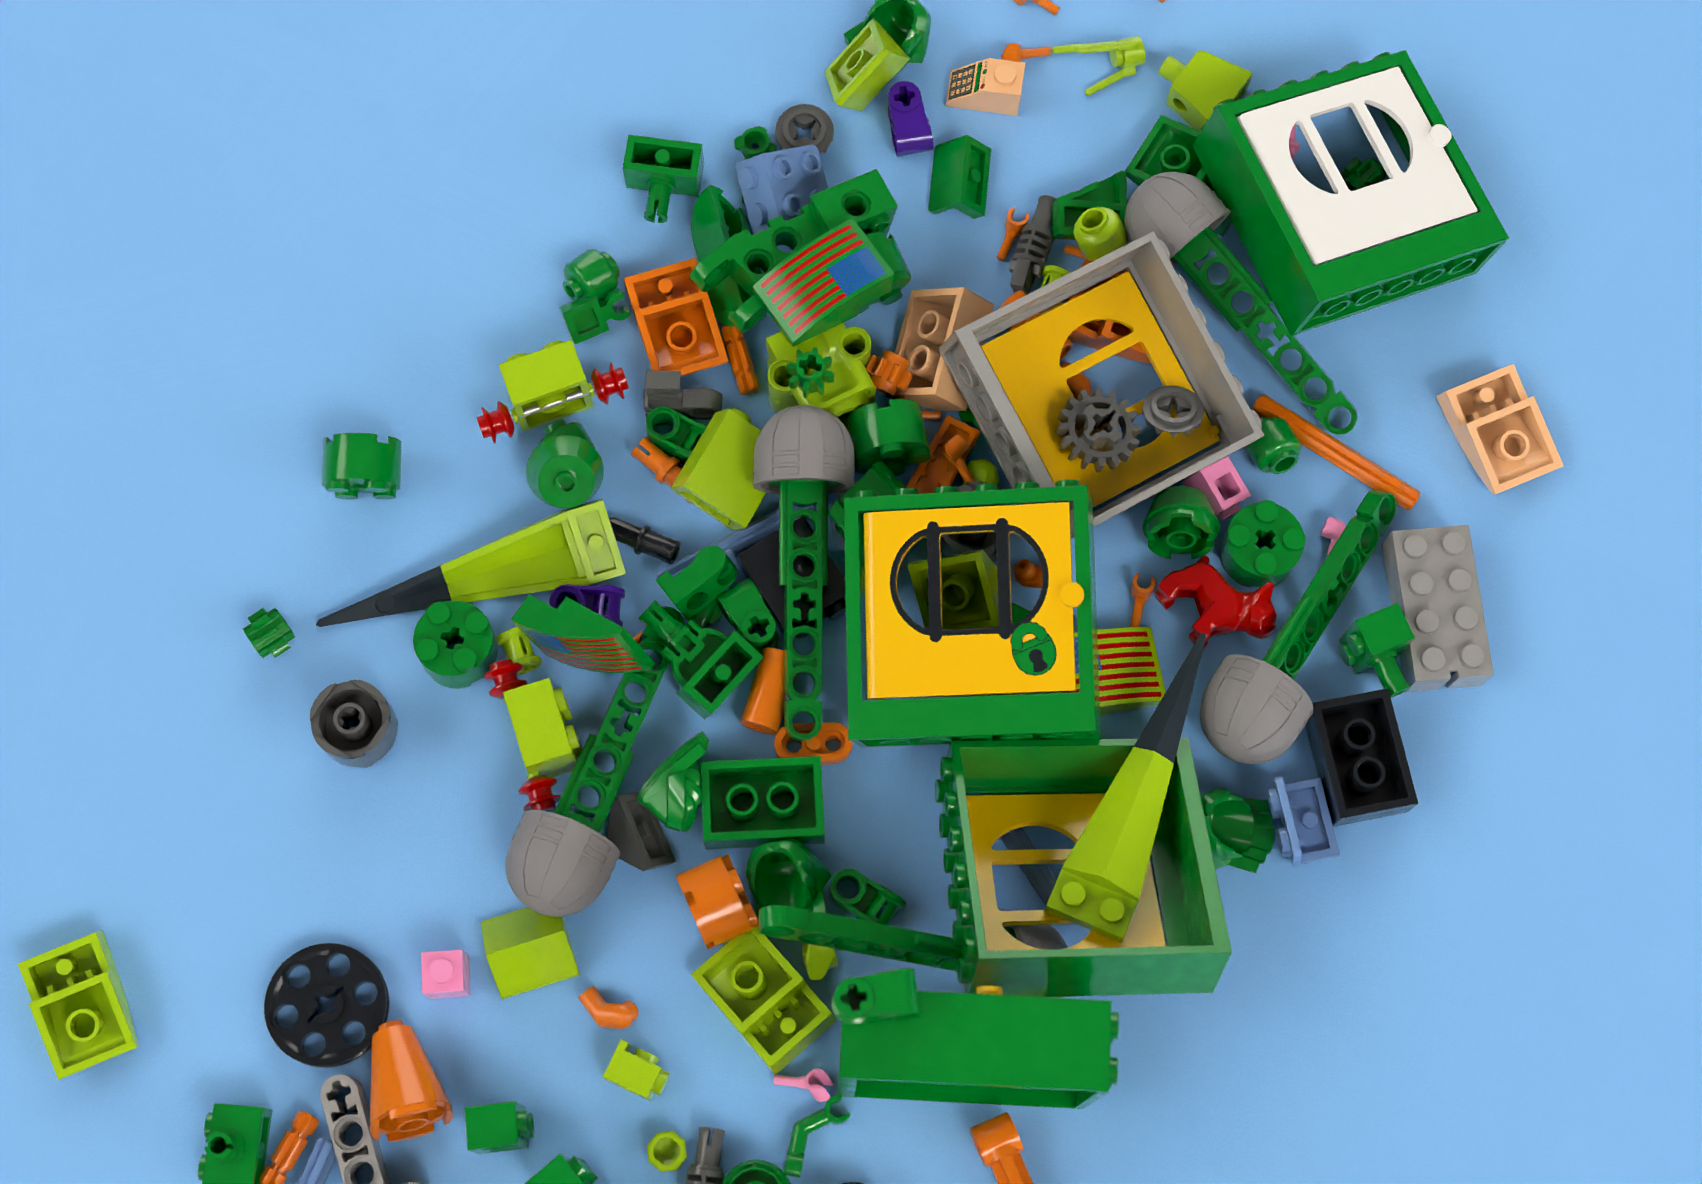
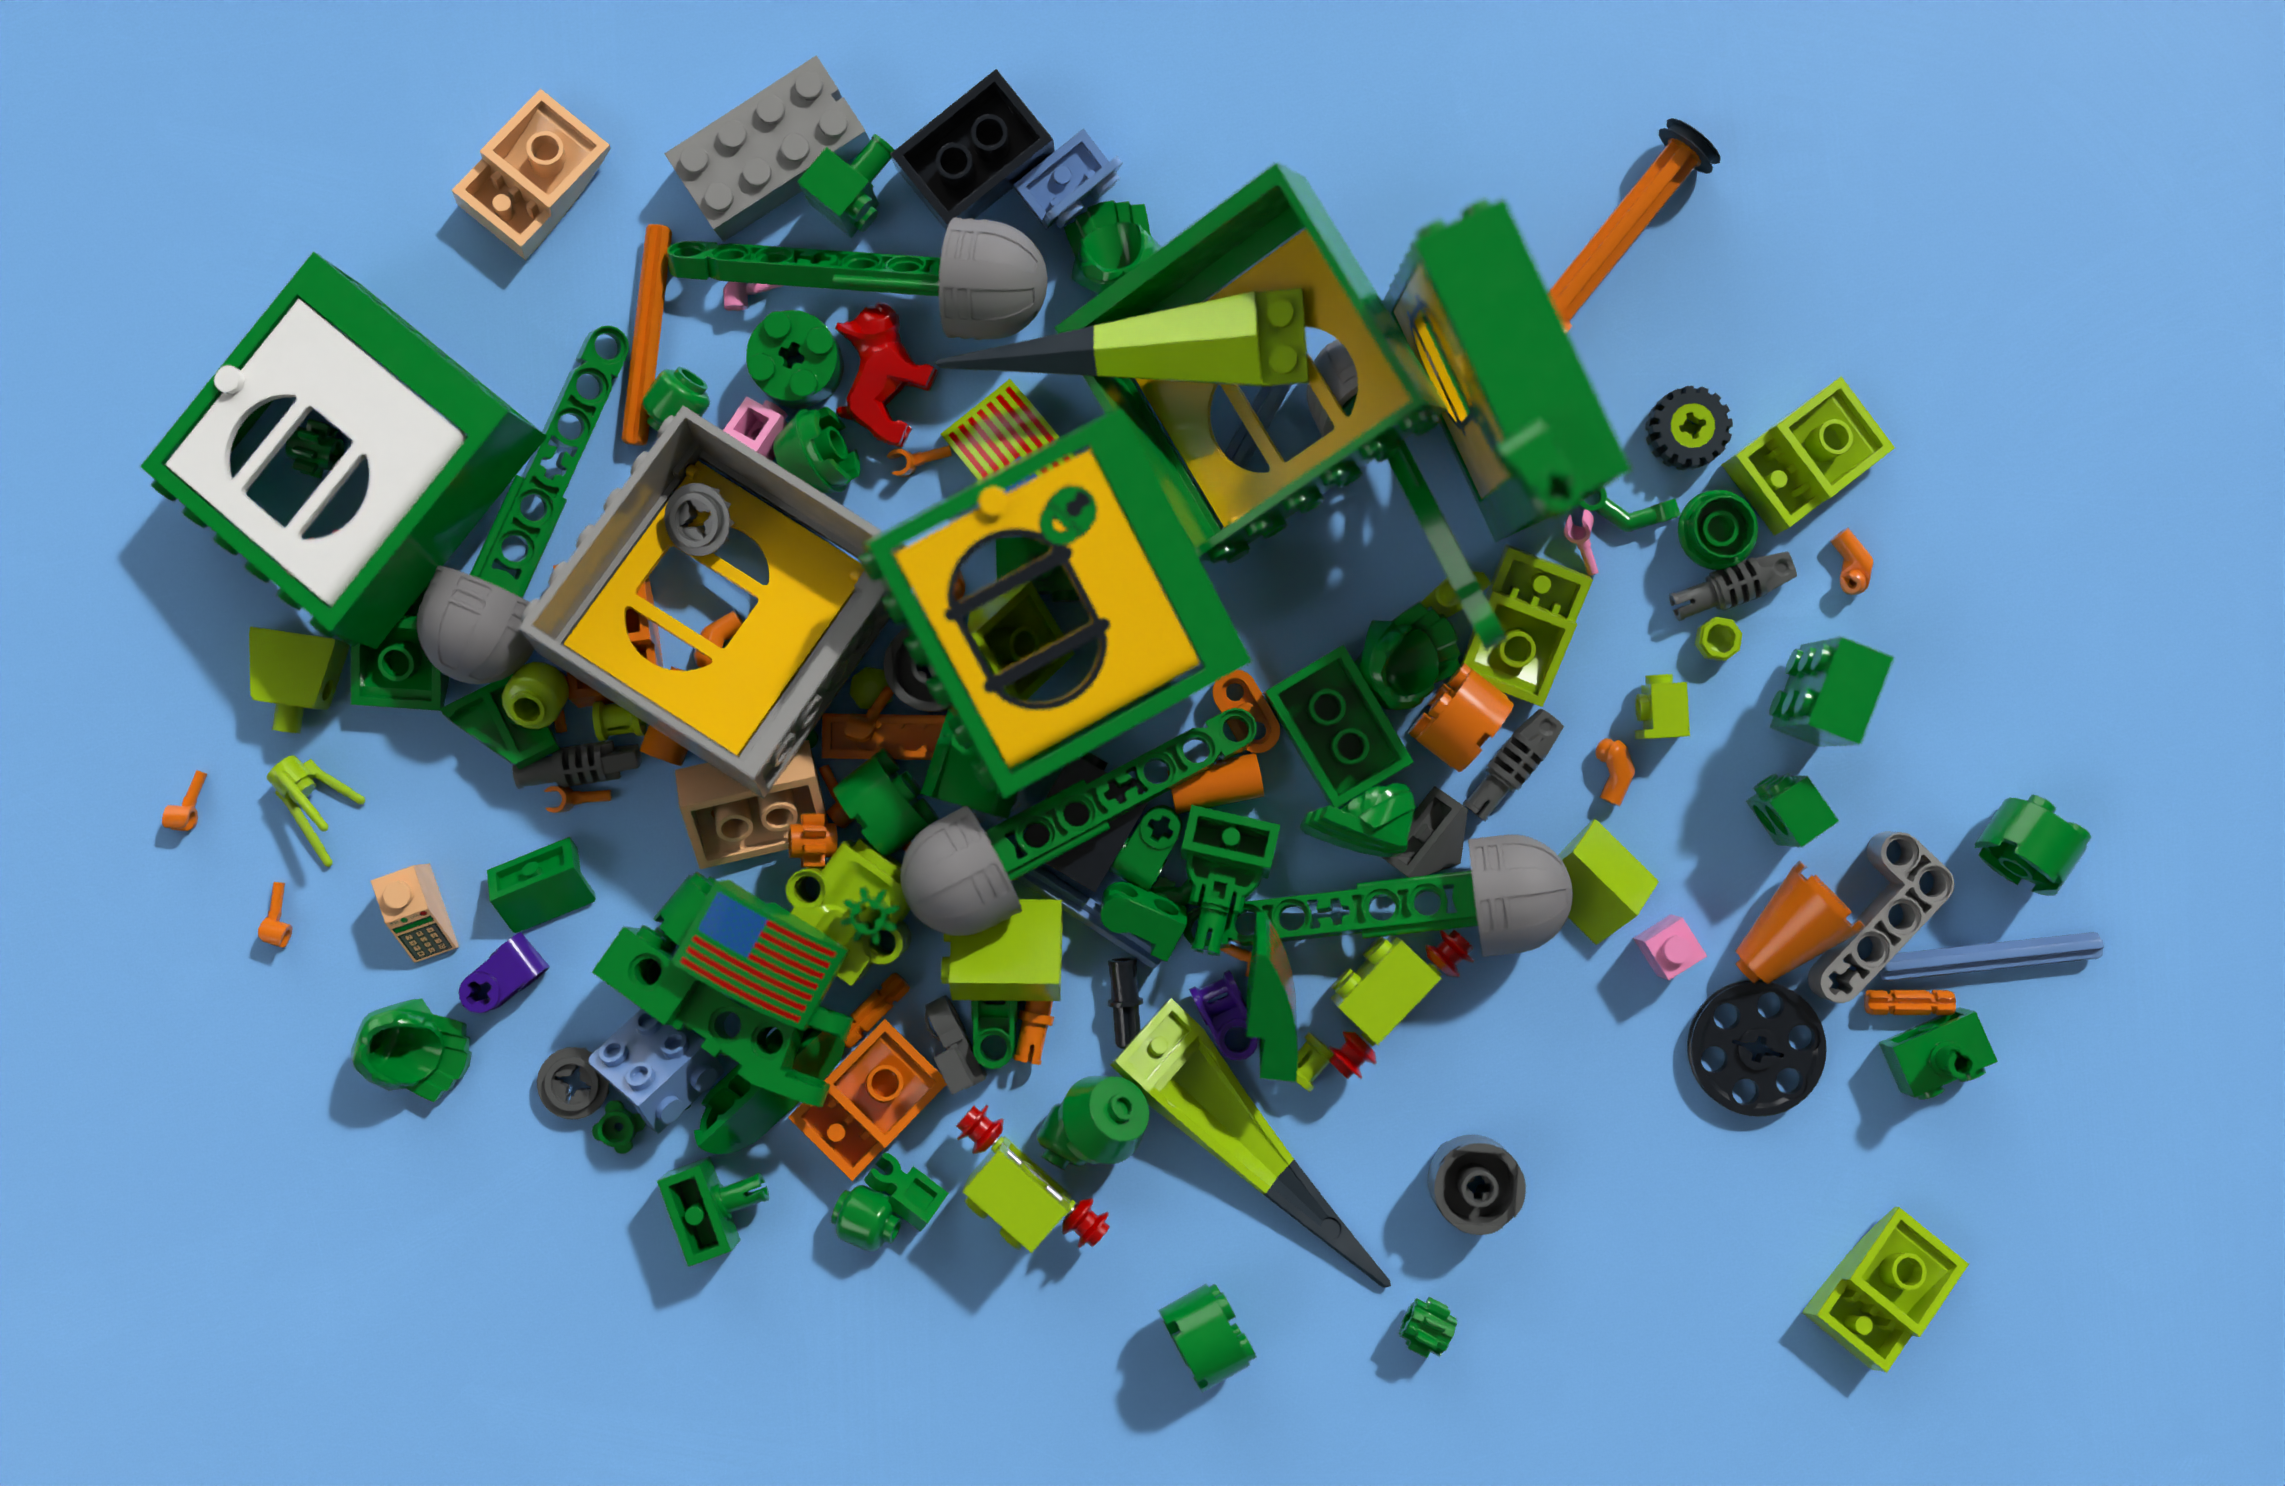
camera: 115 degrees left, 15 degrees up
(443, 626) = (1361, 1142): green brick -> none
(659, 931) = (1515, 762): none -> dark grey hinge
(864, 67) = (465, 1057): lime slope -> none
(869, 899) = (1377, 566): green piece -> none
(1015, 53) = (358, 904): orange hand -> none
(1092, 414) = (761, 602): dark grey gear -> none

